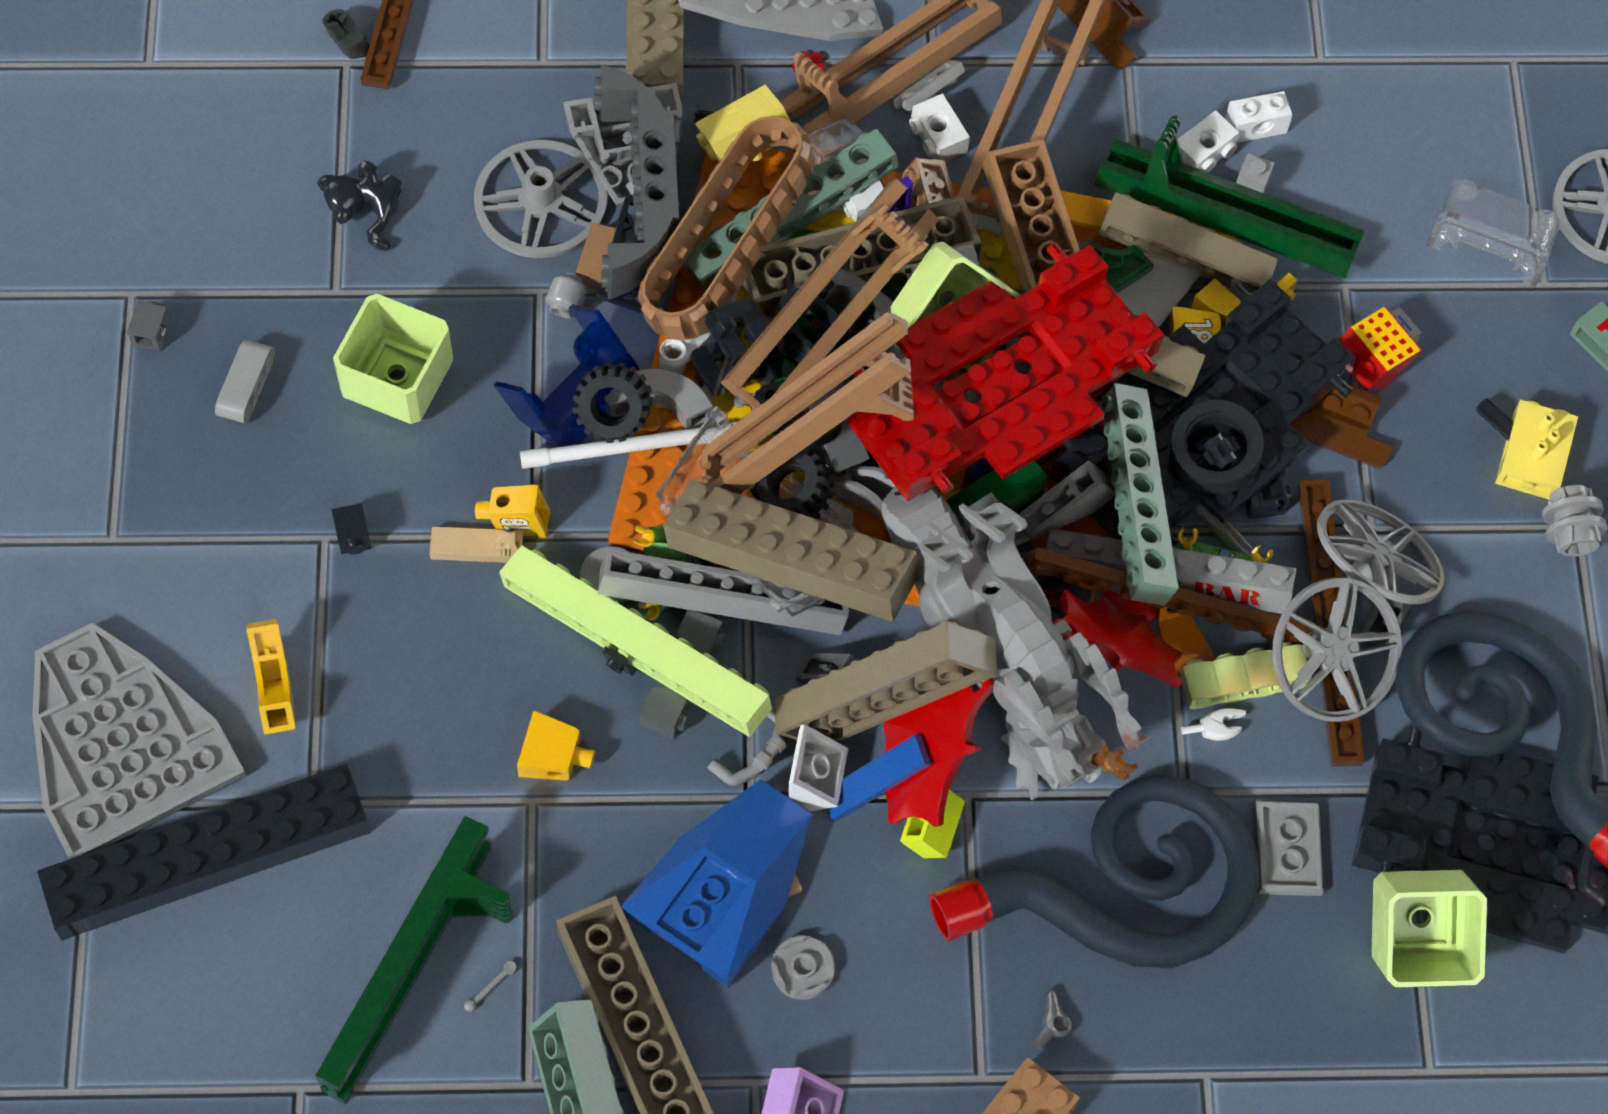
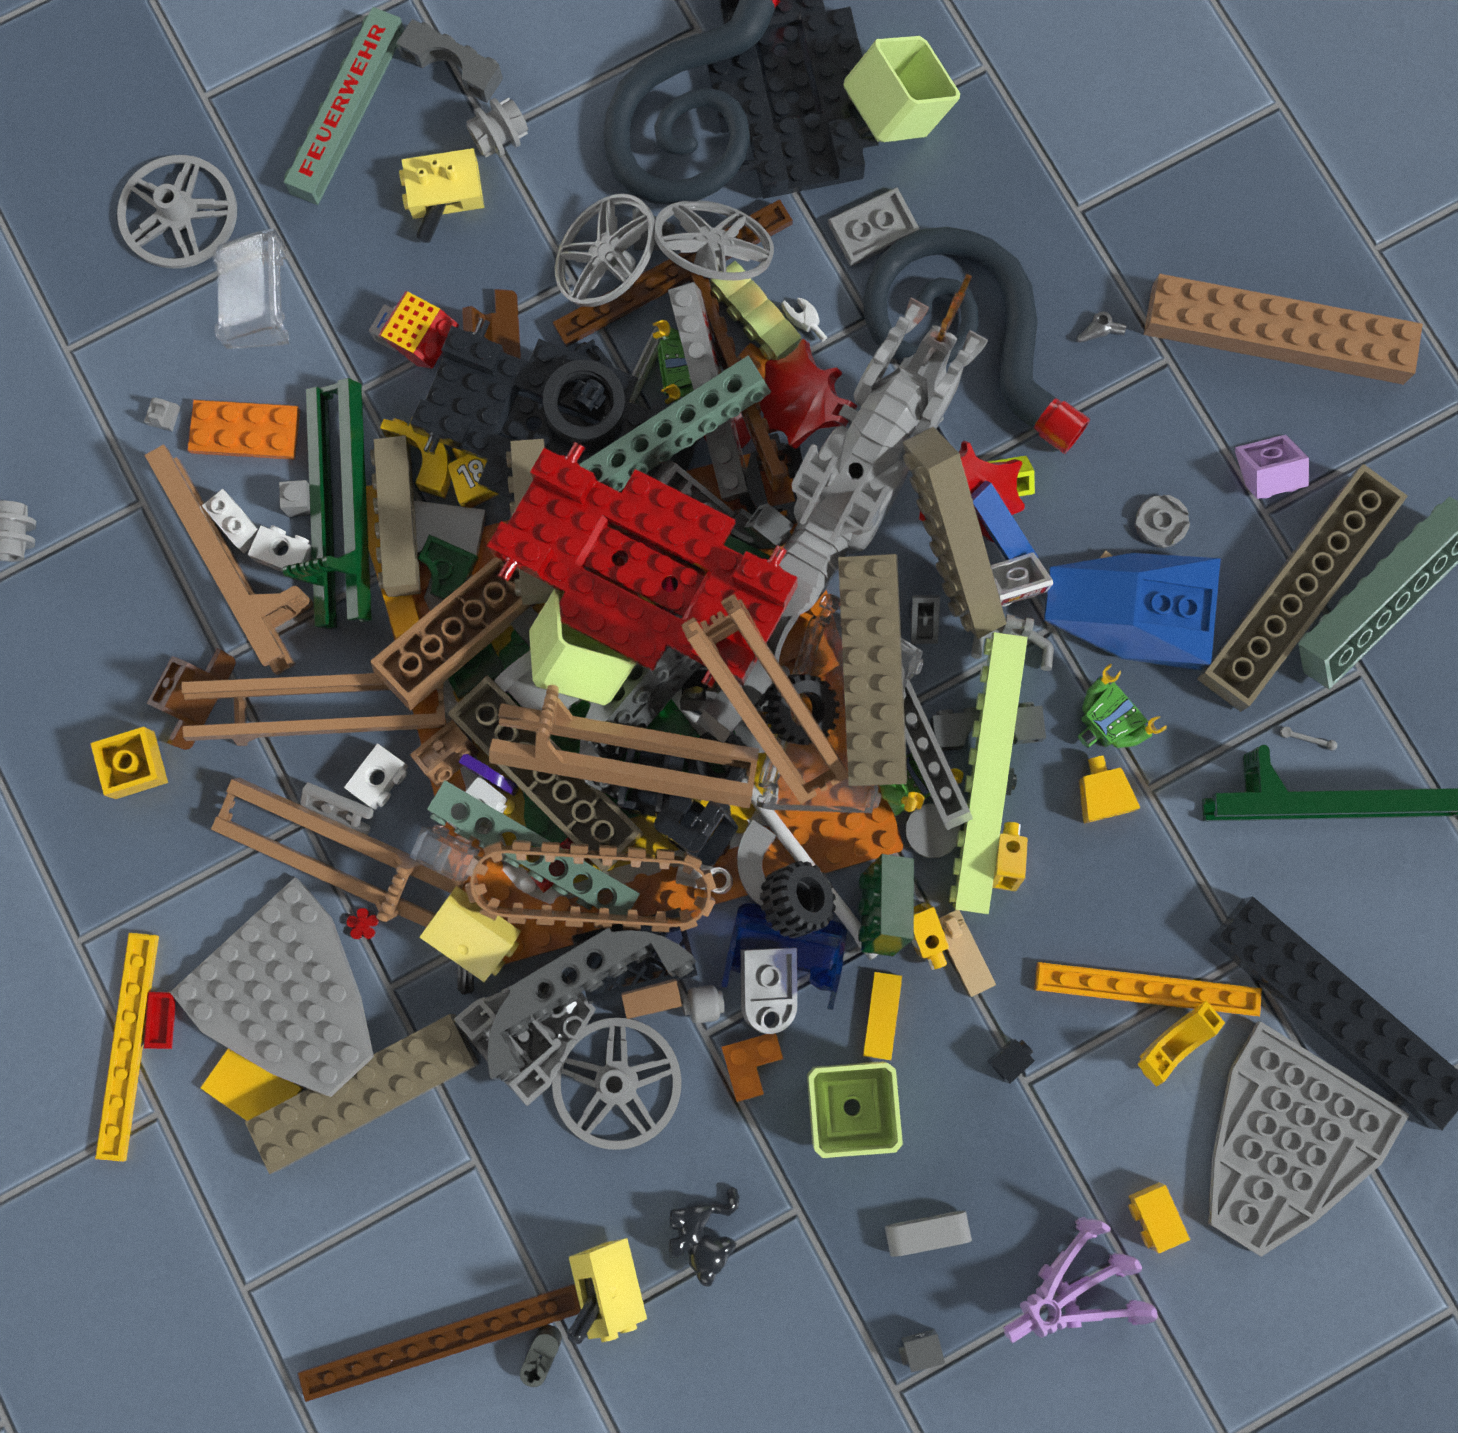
camera: 110 degrees left, 15 degrees up
(91, 466) = (1120, 1264): none -> lavender piece
(128, 581) = (1158, 1218): none -> yellow brick
(339, 691) = (1147, 989): none -> light orange tile
(365, 97) = (606, 1292): none -> light yellow piece
(463, 444) = (882, 1016): none -> yellow tile
(494, 308) = (744, 1058): none -> orange plate
(541, 620) = (1011, 858): none -> yellow torso
(550, 355) = (769, 986): none -> light grey tile
(562, 477) = (887, 905): none -> brick
(624, 797) = (1113, 716): none -> bright green torso
(995, 253) = (475, 670): none -> dark green tile
(1210, 86) = (255, 612): none -> medium nougat piece
(1351, 169) = (244, 429): none -> orange plate
(1402, 108) = (162, 414): none -> light grey tile

